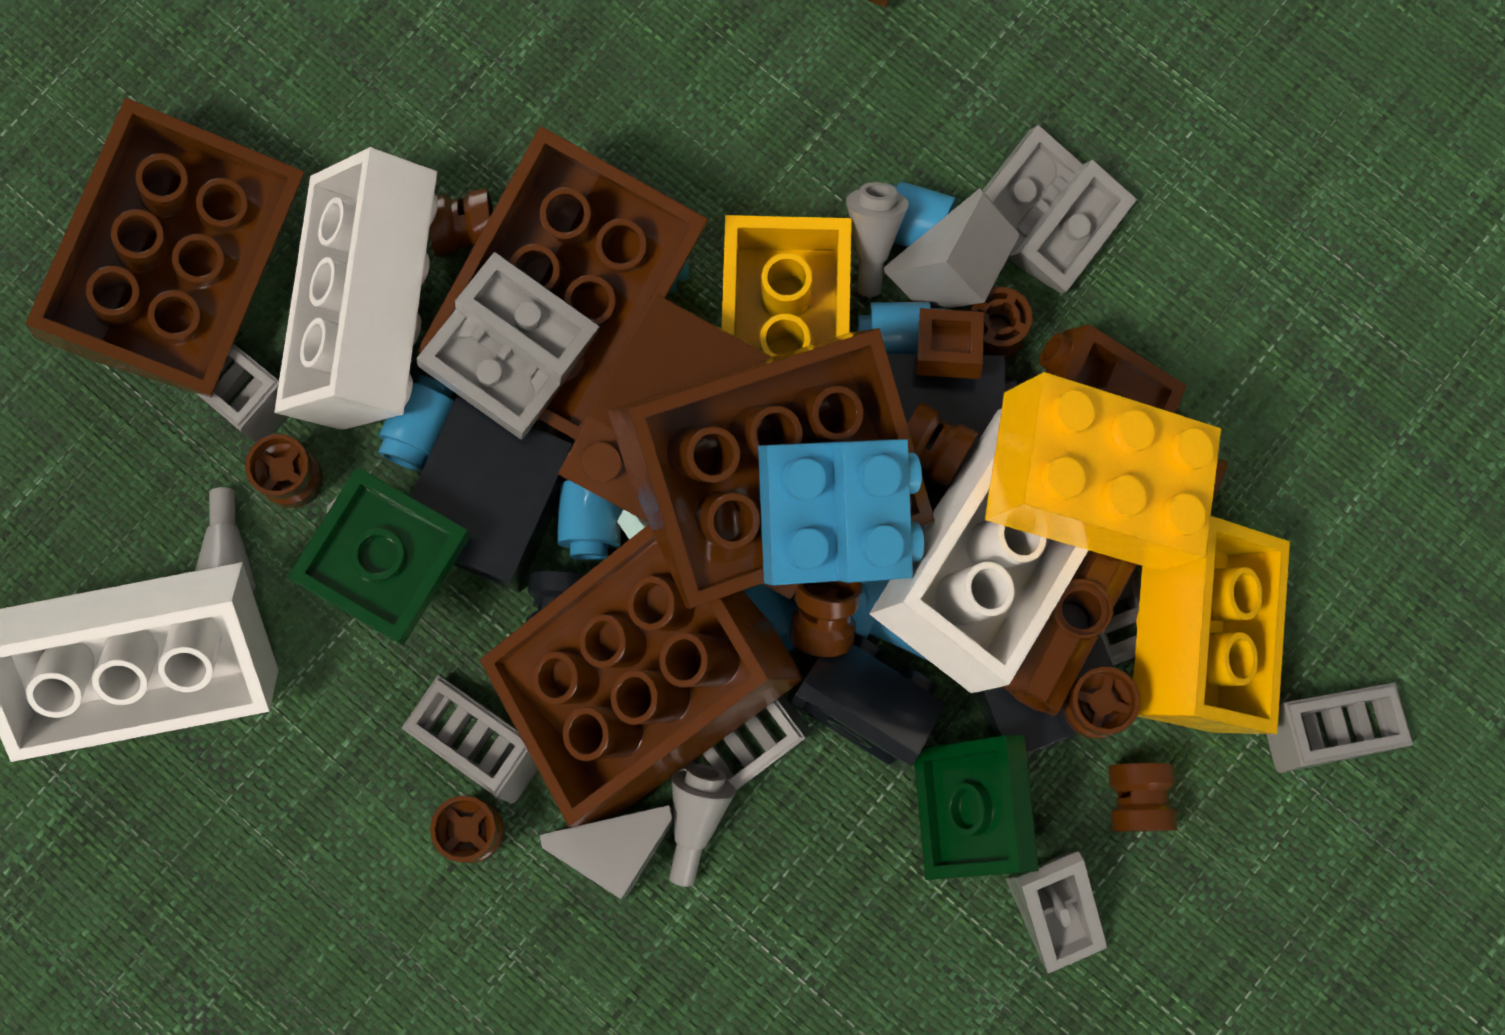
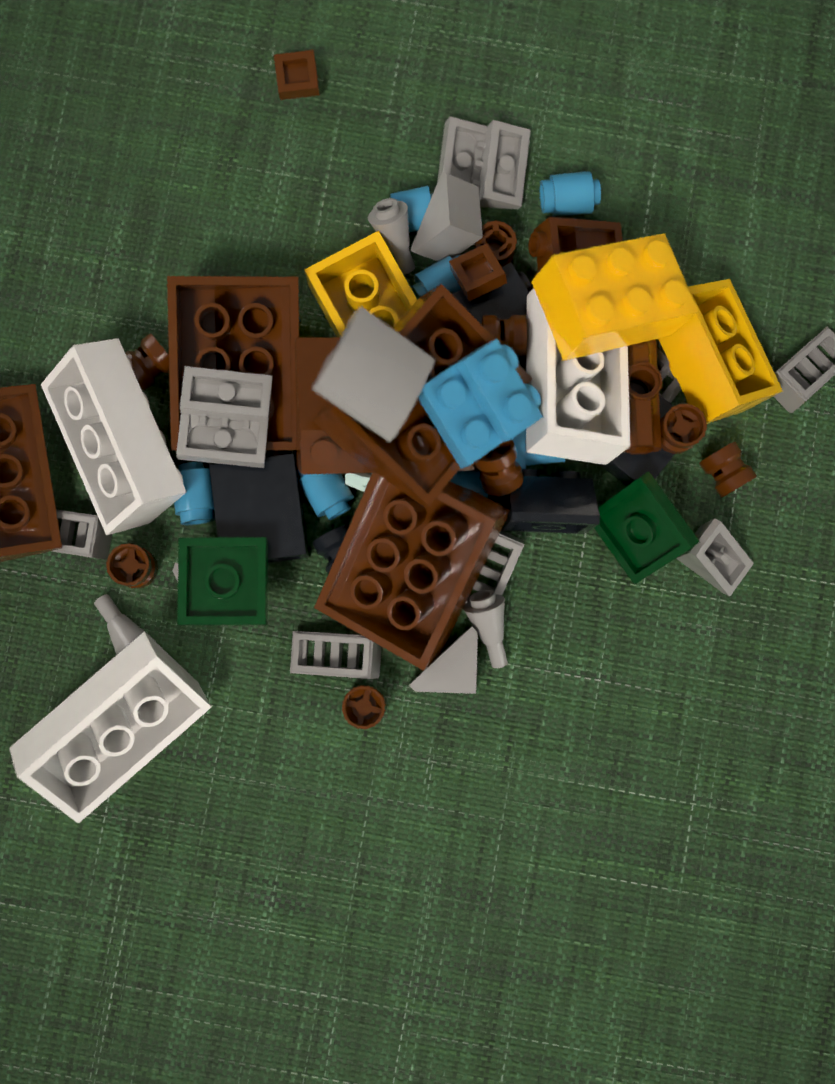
camera: 35 degrees left, 5 degrees up
(713, 394) = (374, 374): none -> light grey slope
(1139, 311) = (569, 194): none -> dark azure brick

